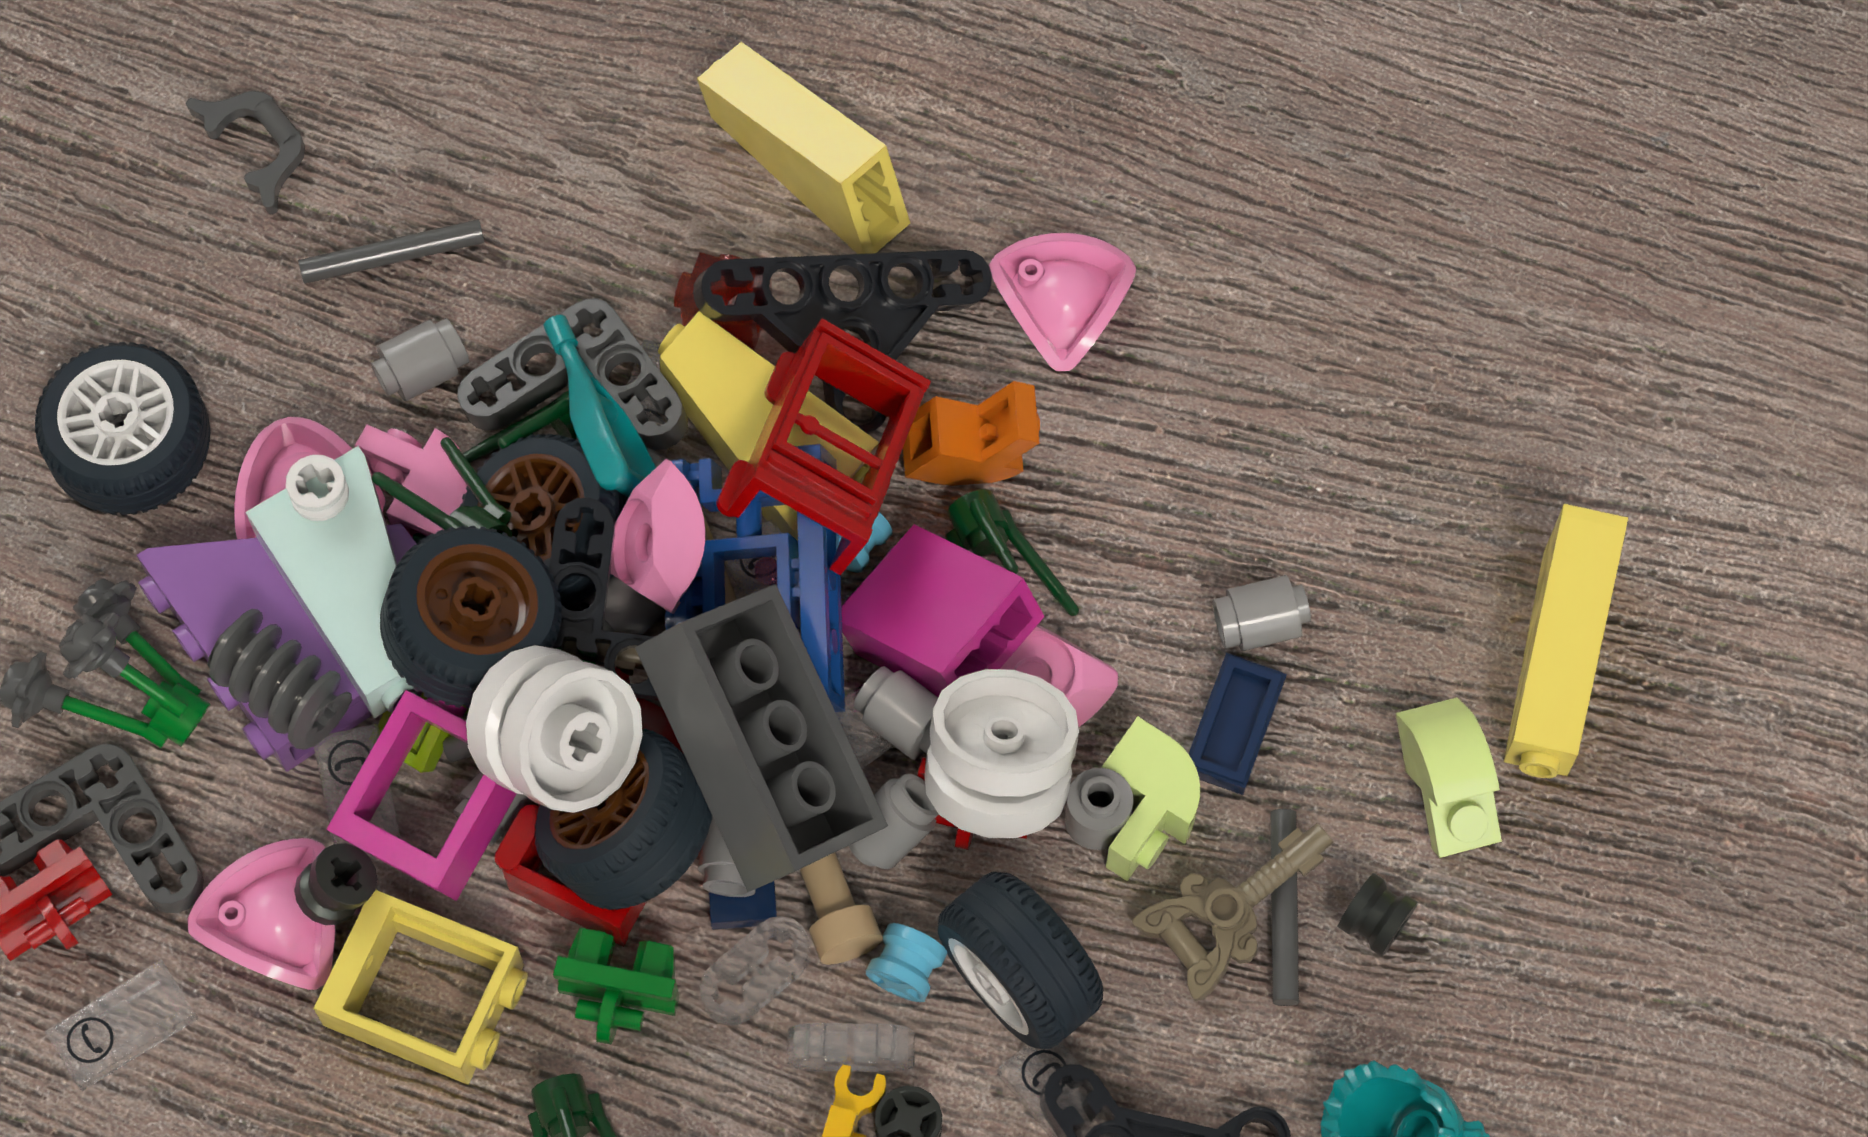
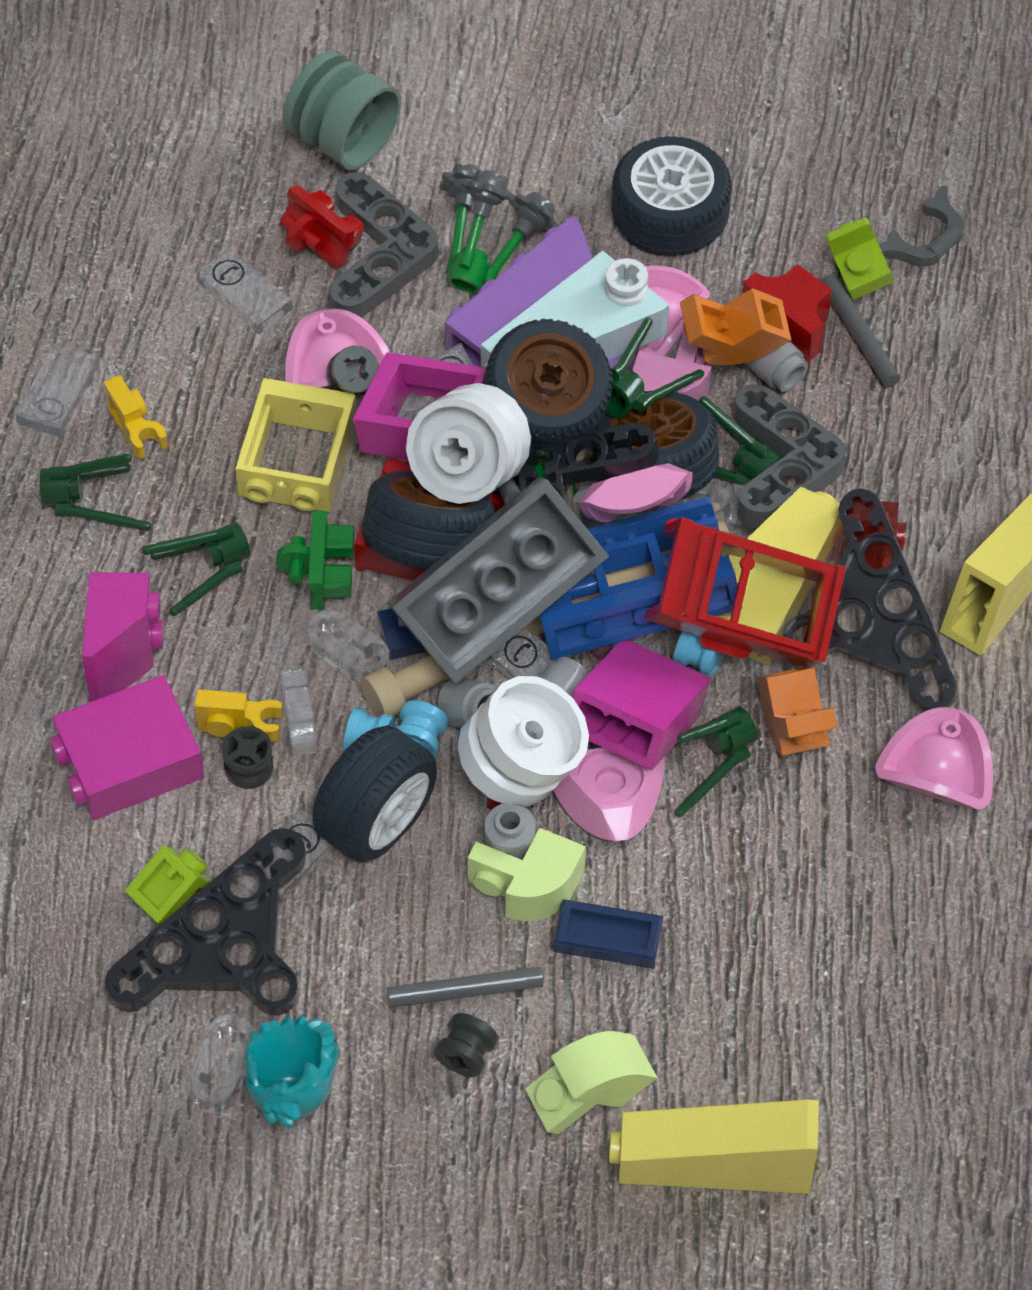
camera: 80 degrees right, 10 degrees down
(274, 683) = (487, 299): dark grey piece -> none
(287, 223) = (859, 258): none -> lime bracket
(348, 321) = (804, 302): none -> red brick
(398, 375) = (738, 330): none -> orange brick
(602, 427) = (750, 454): teal piece -> none
(910, 896) = (423, 723): none -> medium azure wheel
(1227, 911) = (449, 942): dark tan piece -> none
(1261, 613) = (700, 933): light grey brick -> none

